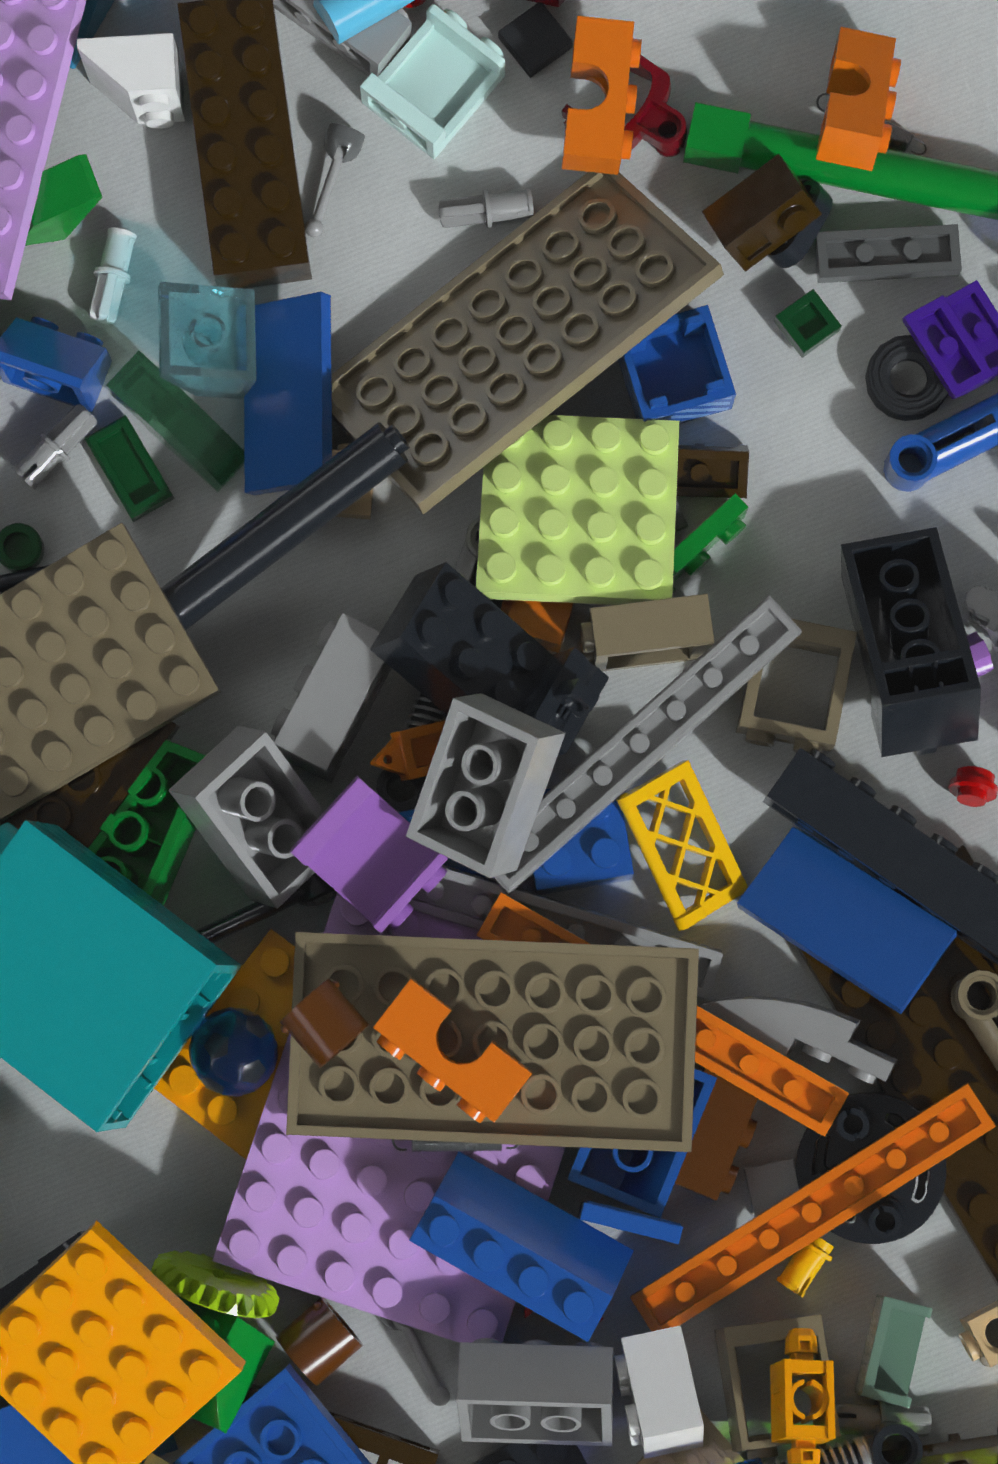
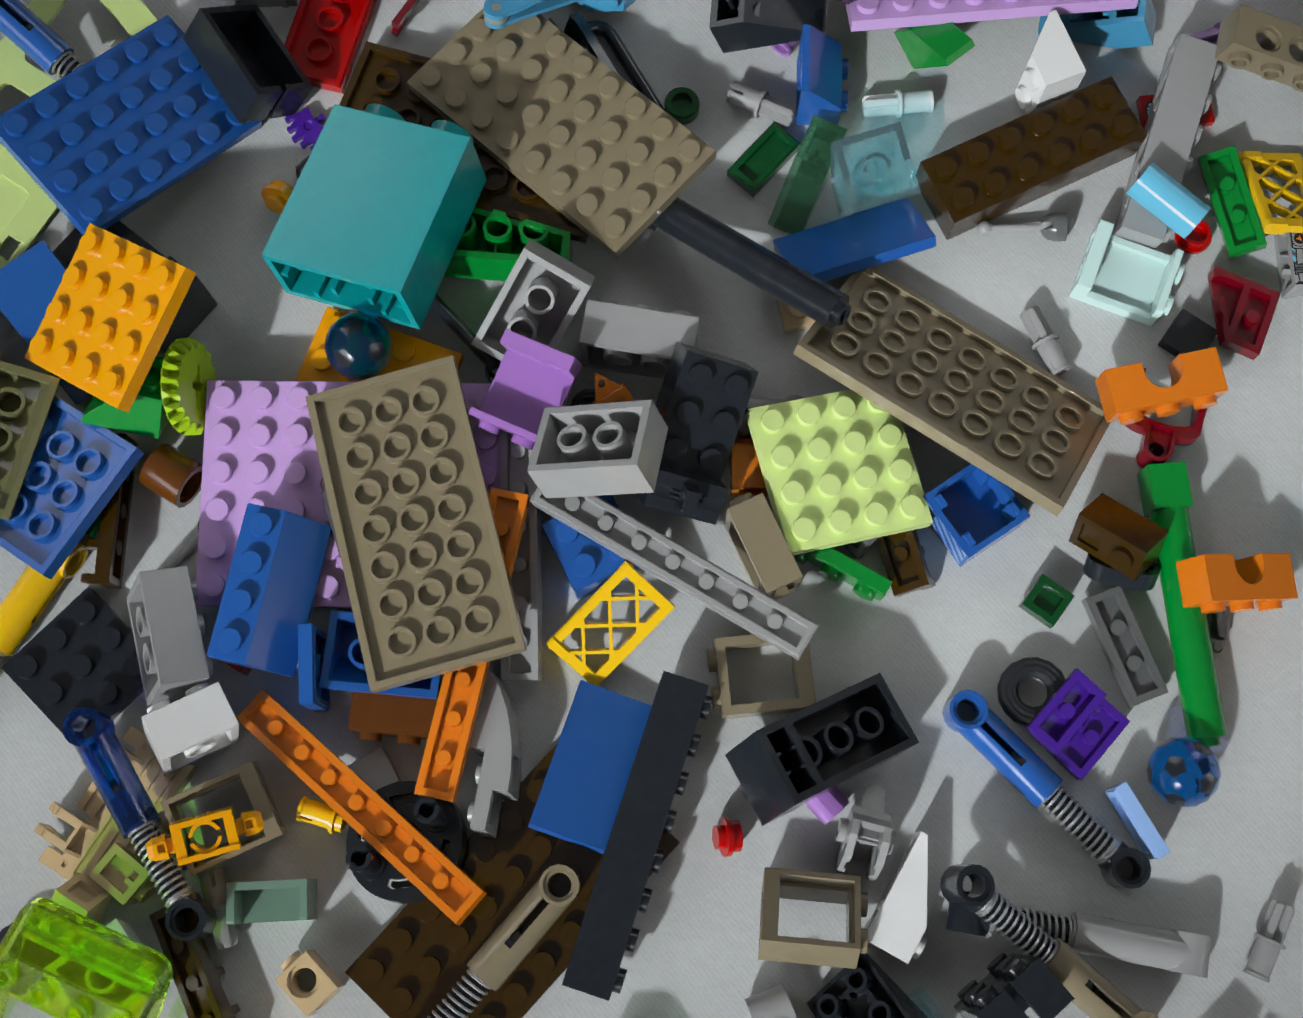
camera: 75 degrees right, 5 degrees down
(324, 1023) = (387, 390): reddish brown piece -> none
(413, 1028) = (400, 456): orange arch -> none

